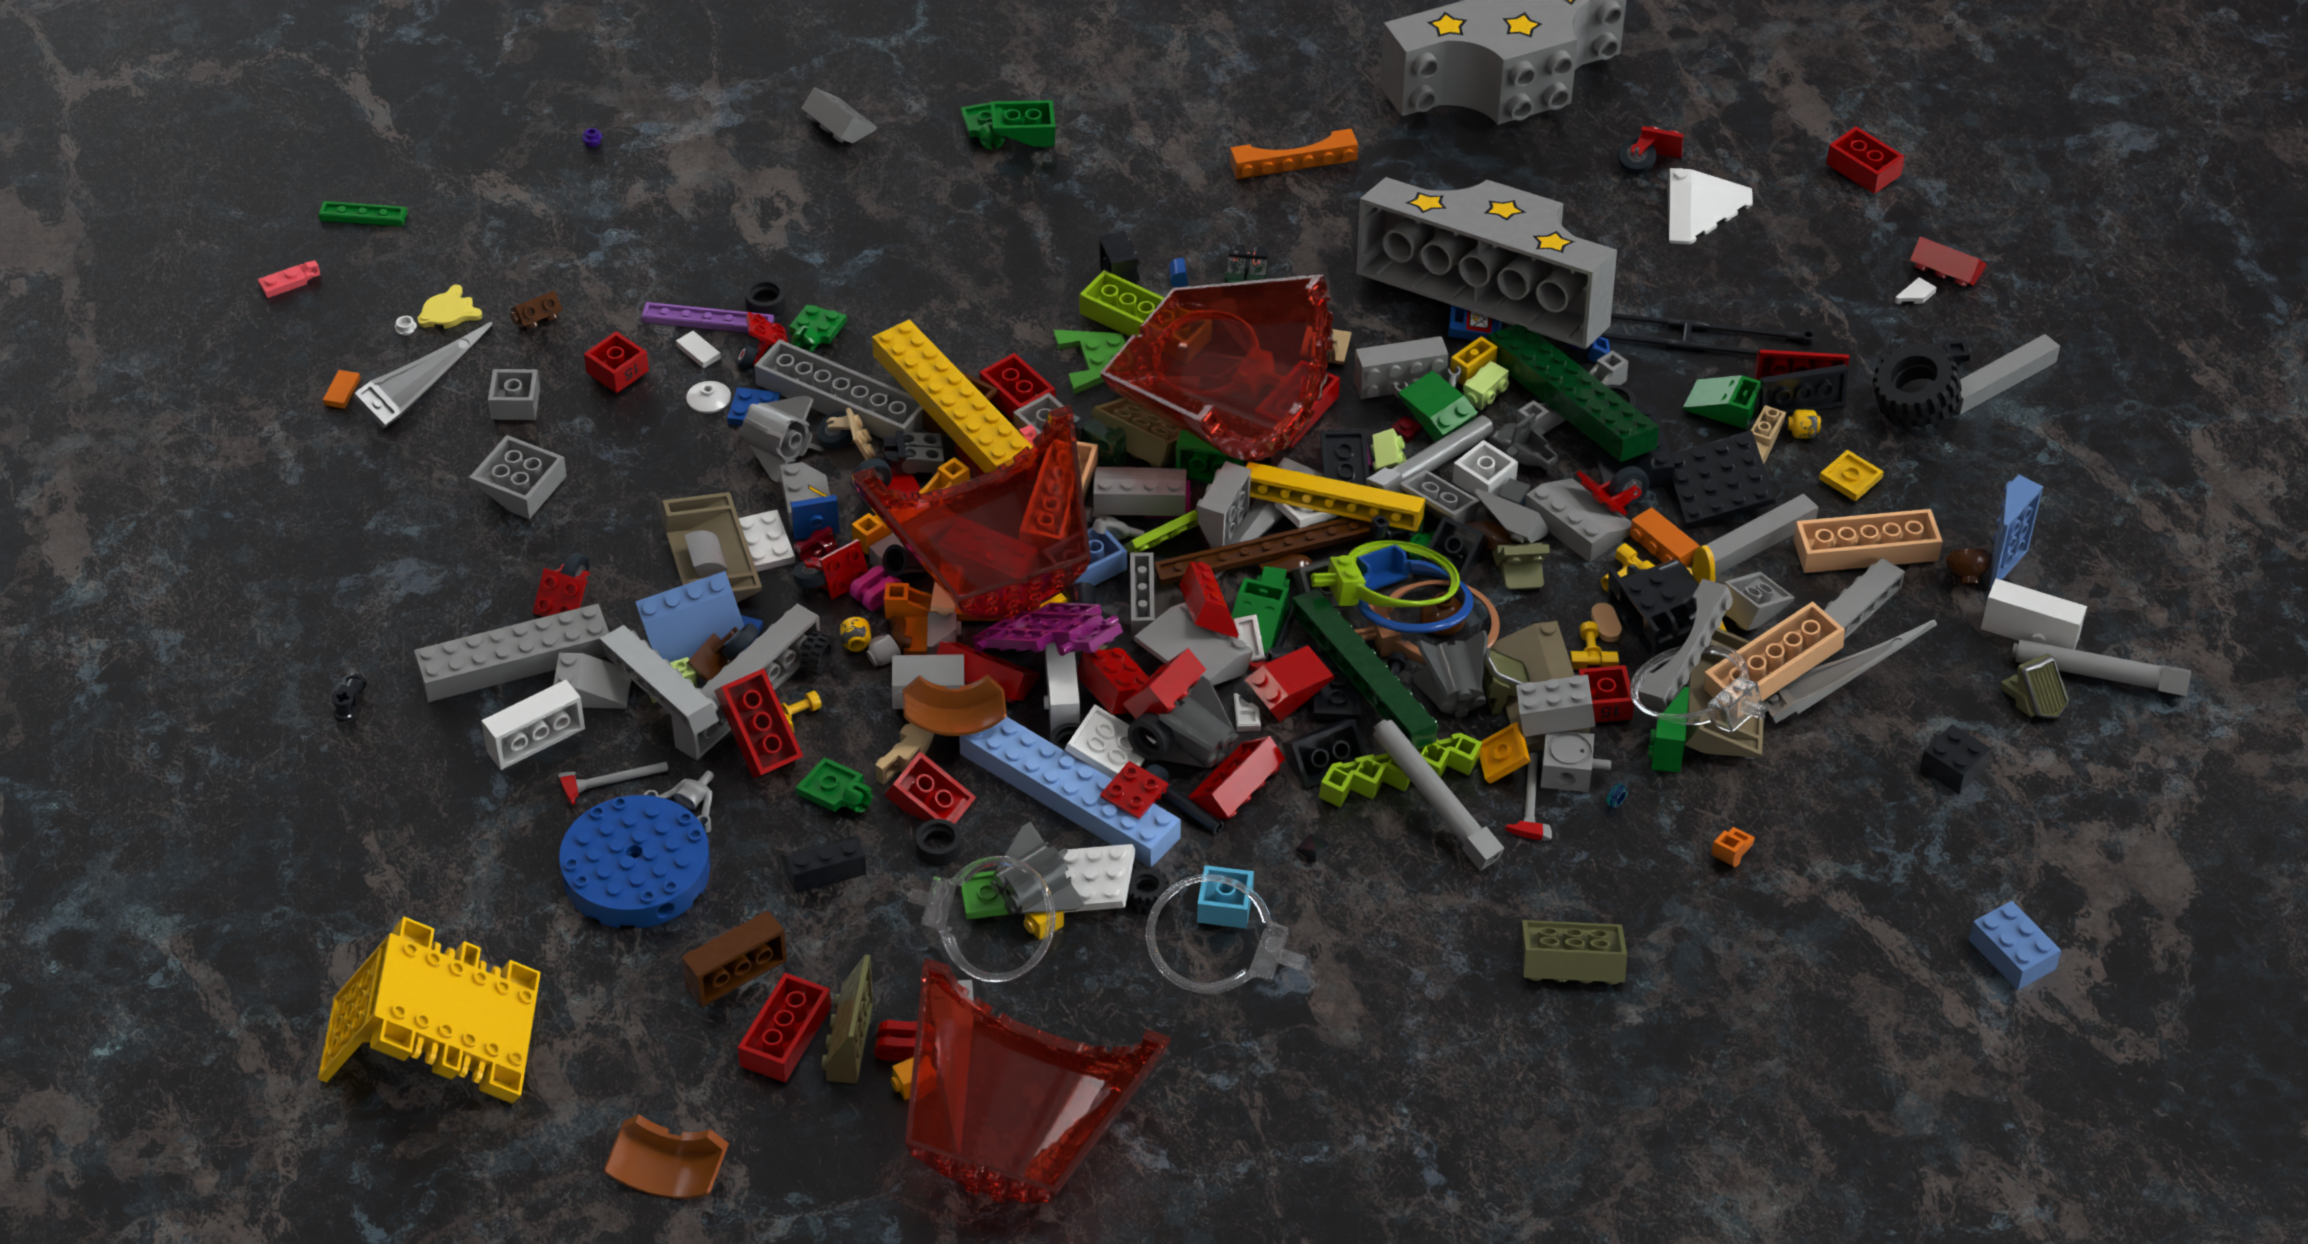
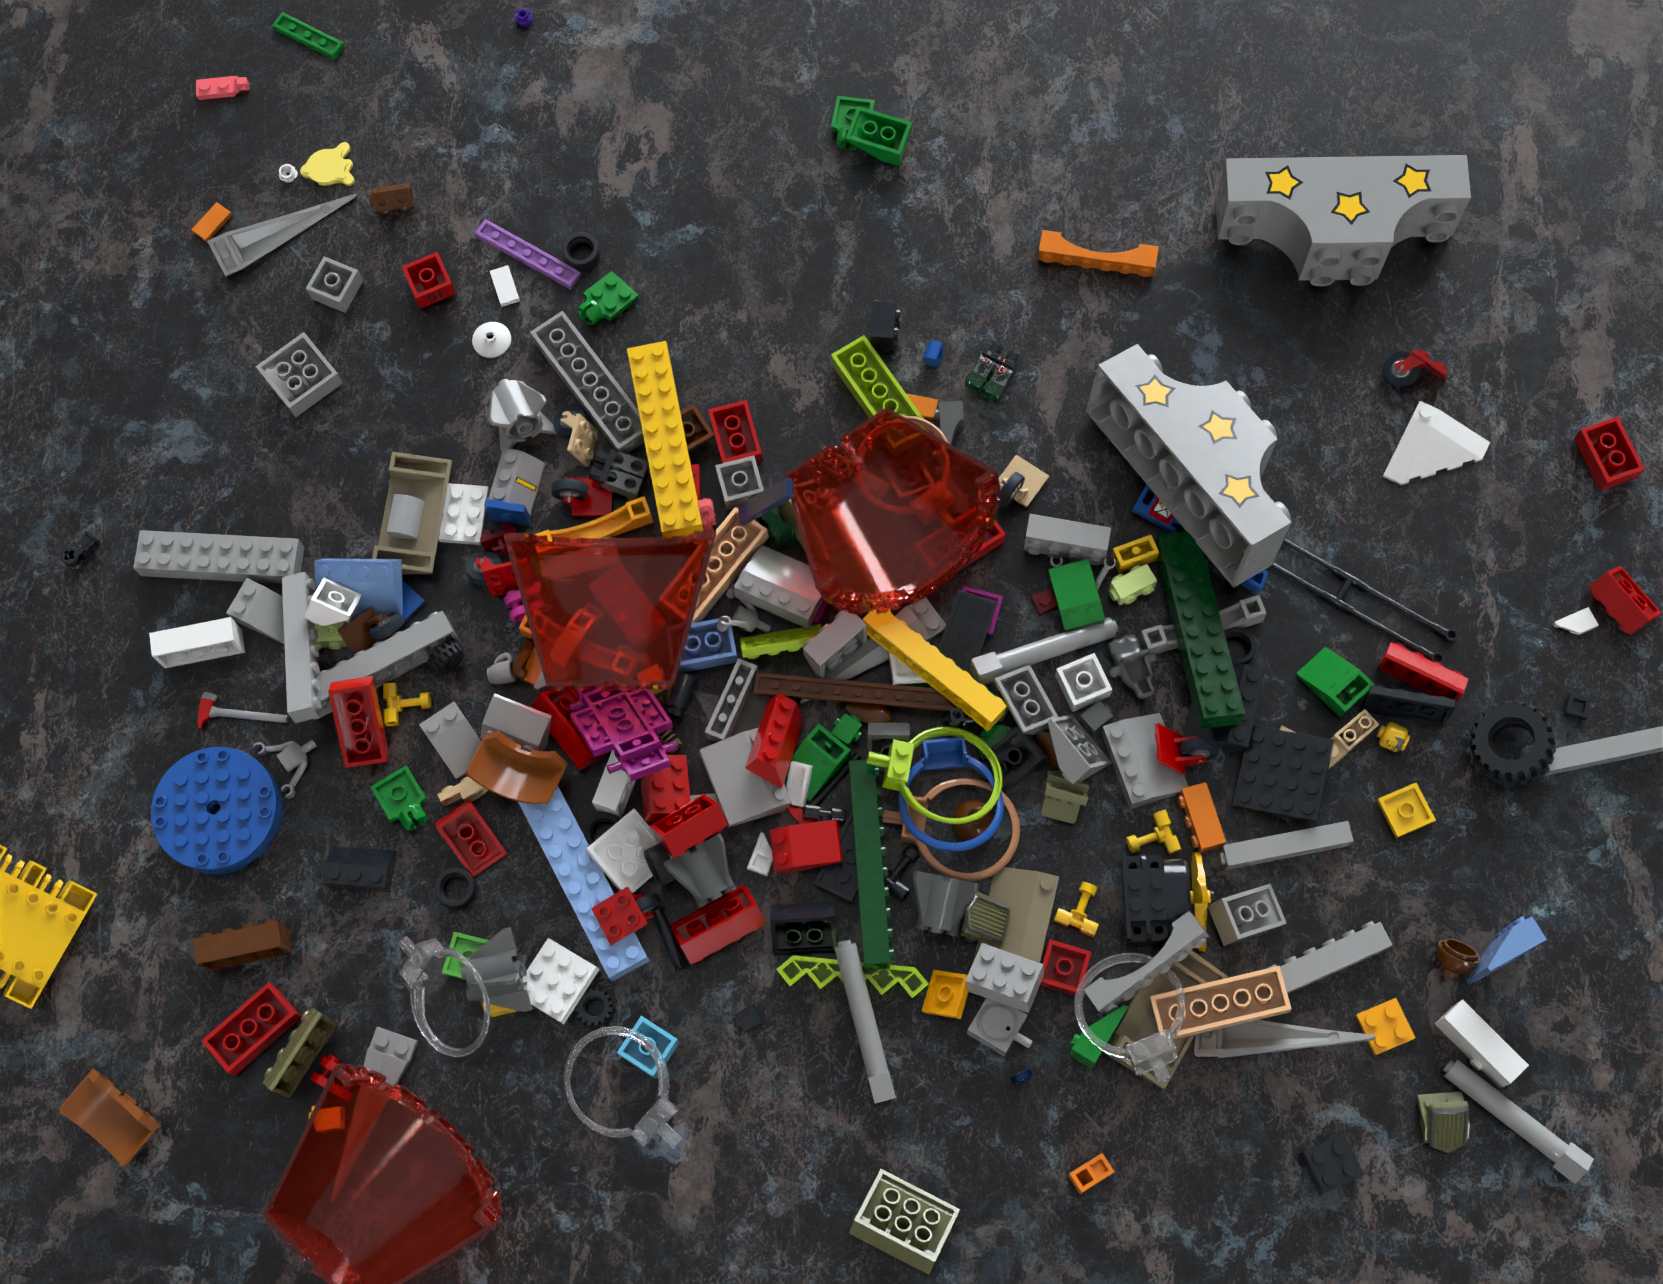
camera: 30 degrees right, 25 degrees up
(562, 588) = (281, 508): red plate -> none
(675, 633) = (332, 604): none -> white slope
(744, 398) = (520, 358): blue plate -> none
(767, 334) = (560, 296): red plate -> none
(837, 116) = (731, 68): light grey slope -> none
(855, 634) = (488, 646): yellow head -> none
(863, 720) = (452, 738): none -> light grey slope
(1096, 399) = (765, 501): none -> dark blue tile
(1097, 352) = (829, 421): bright green wing -> none
(1387, 450) = (1011, 628): yellowish green brick -> none
(1528, 827) = (934, 1074): light grey piece -> none
(1607, 621) = (1109, 883): light nougat tile -> none
(1866, 539) = (1379, 894): light nougat brick -> none
(1939, 645) = (1387, 1025): none -> light orange plate

